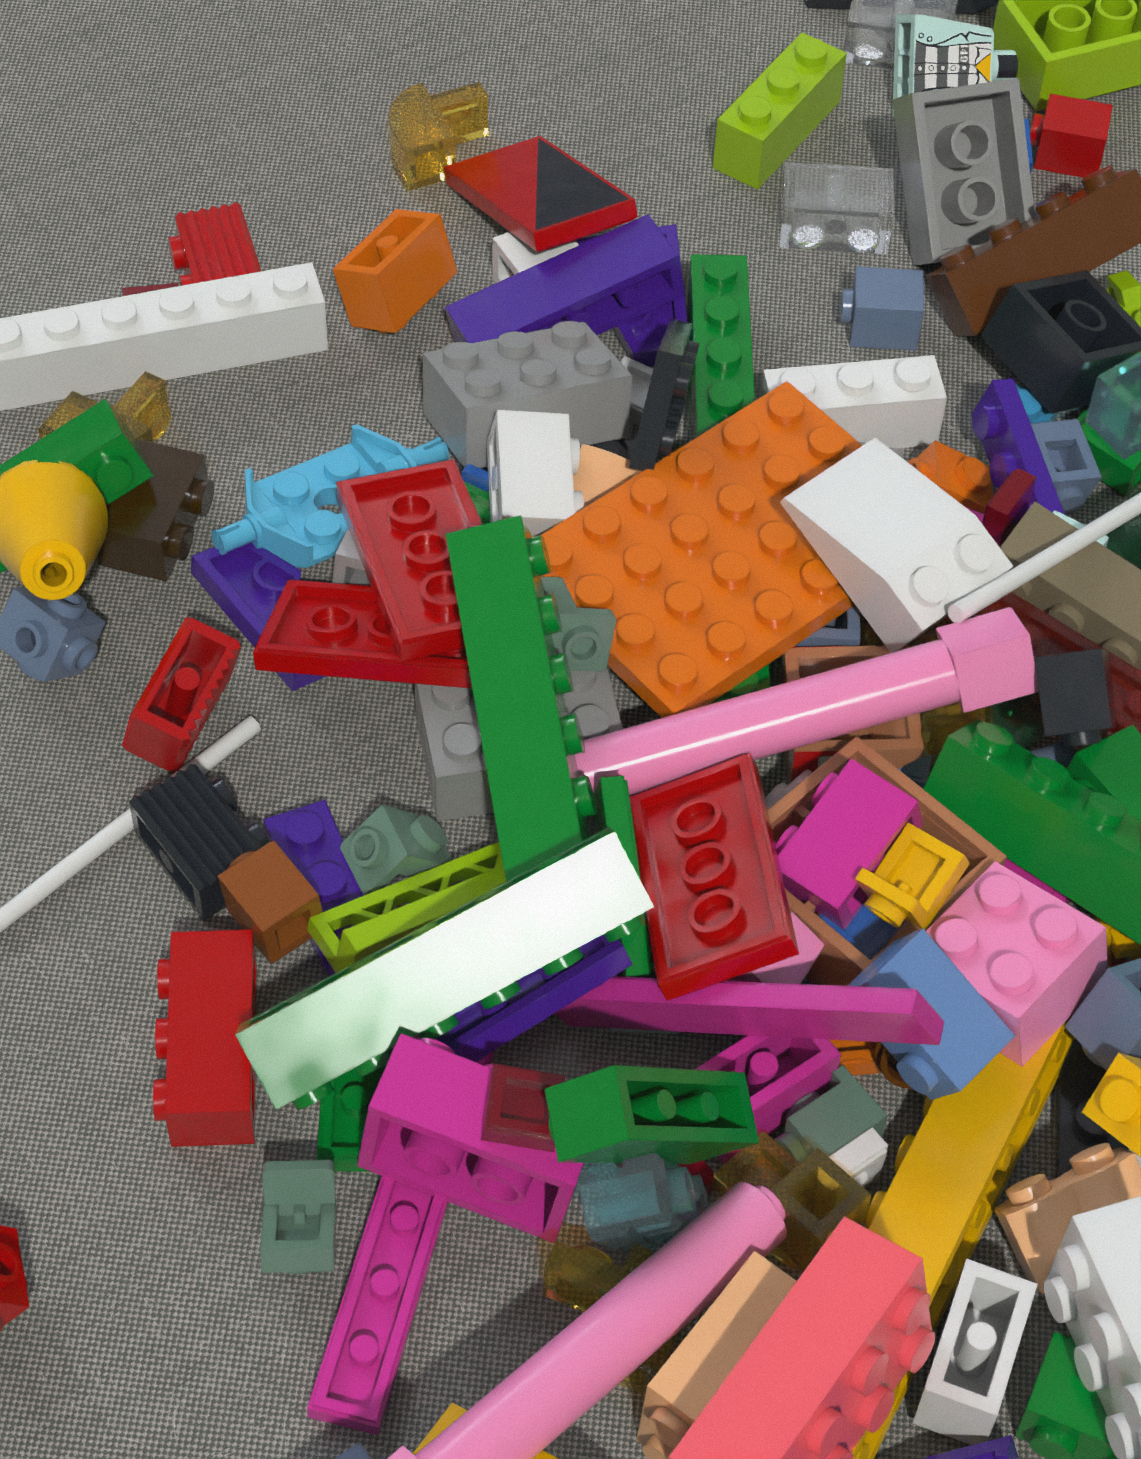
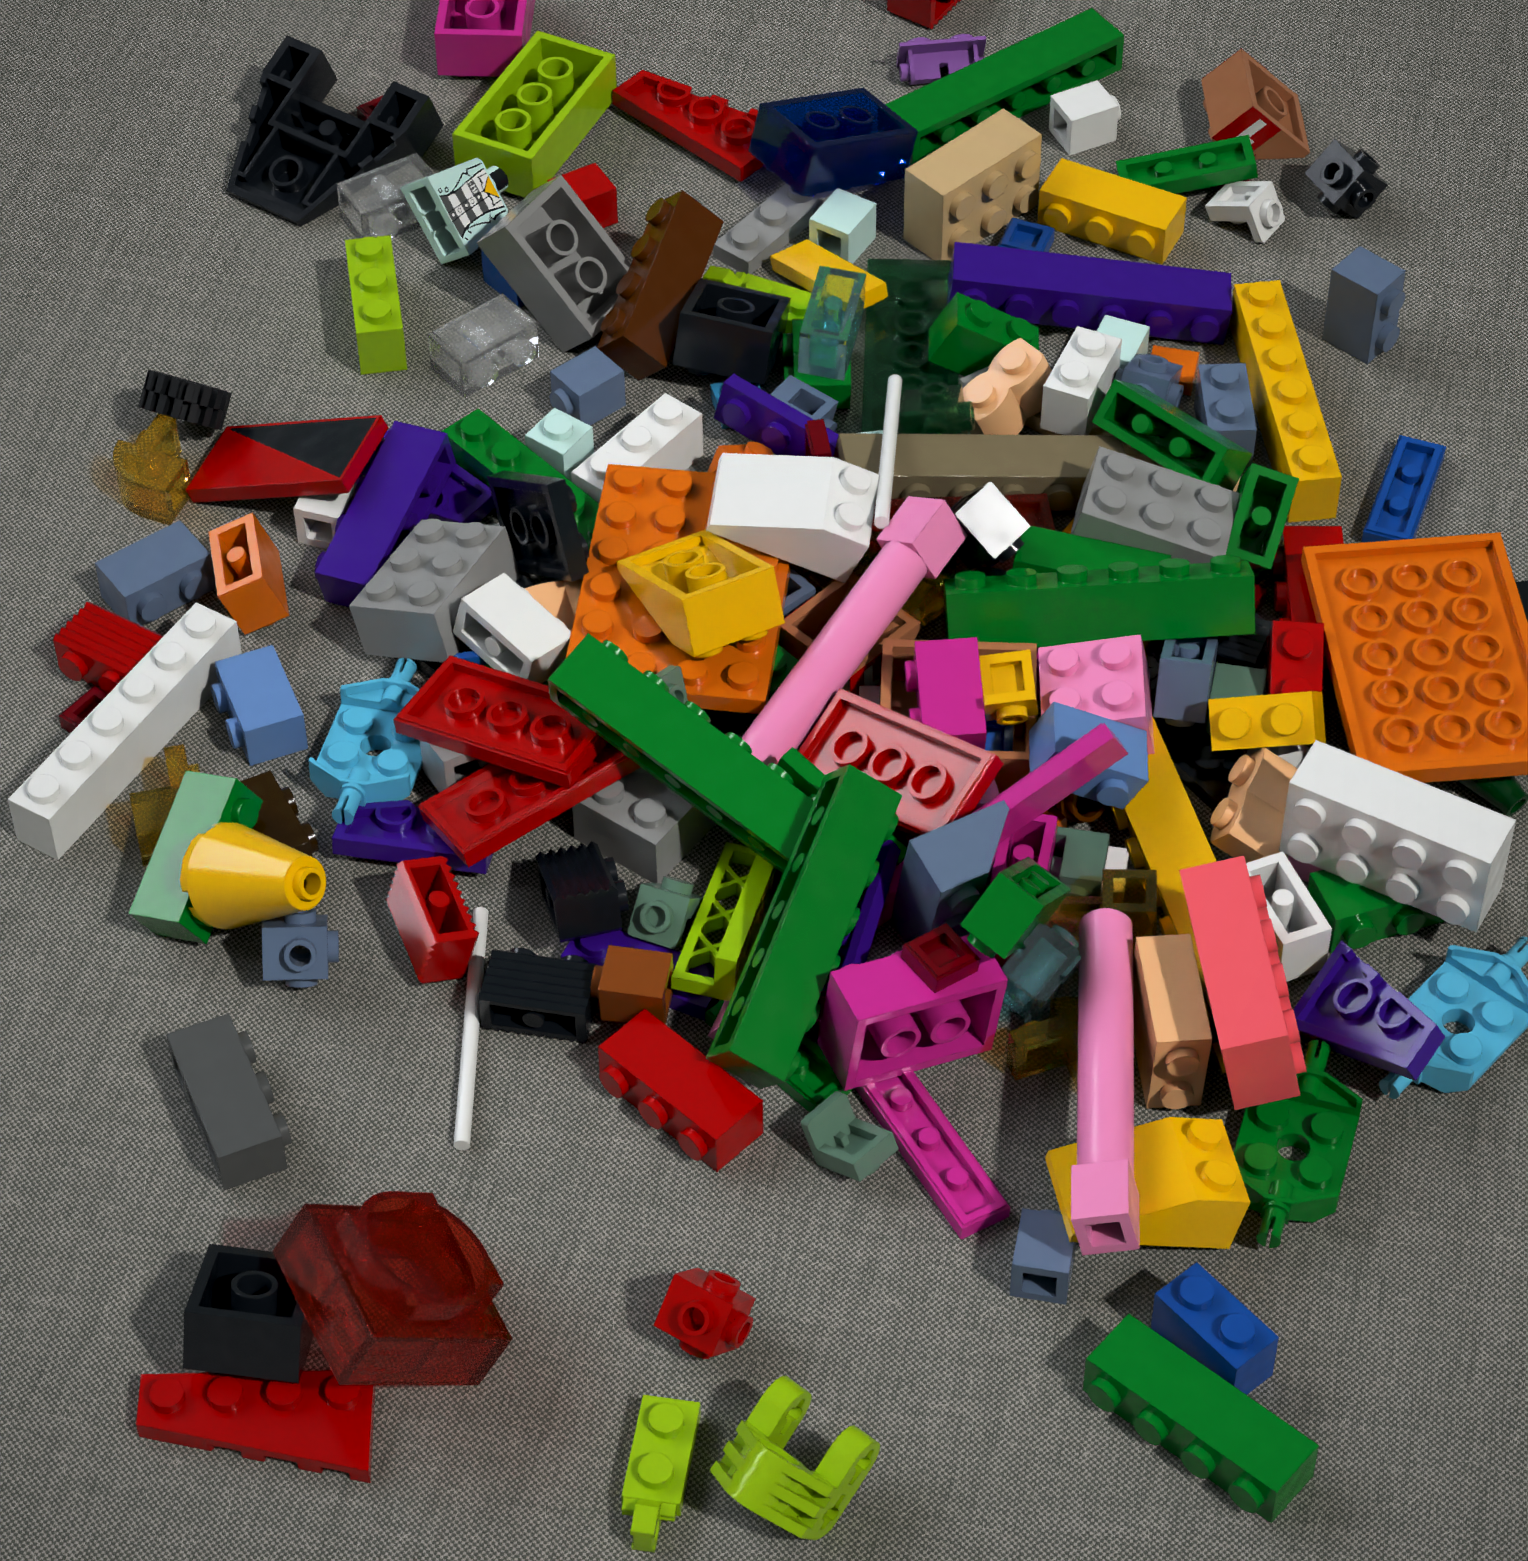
camera: 40 degrees left, 5 degrees down
(280, 395) = (259, 705): none -> medium blue brick
(323, 217) = (156, 574): none -> sand blue brick
(333, 771) = (581, 891): none -> black brick
(515, 85) = (184, 399): none -> black tyre
(653, 1020) = (947, 872): none -> sand blue slope
(711, 562) = (705, 592): none -> yellow slope
(791, 336) = (561, 441): none -> light aqua brick

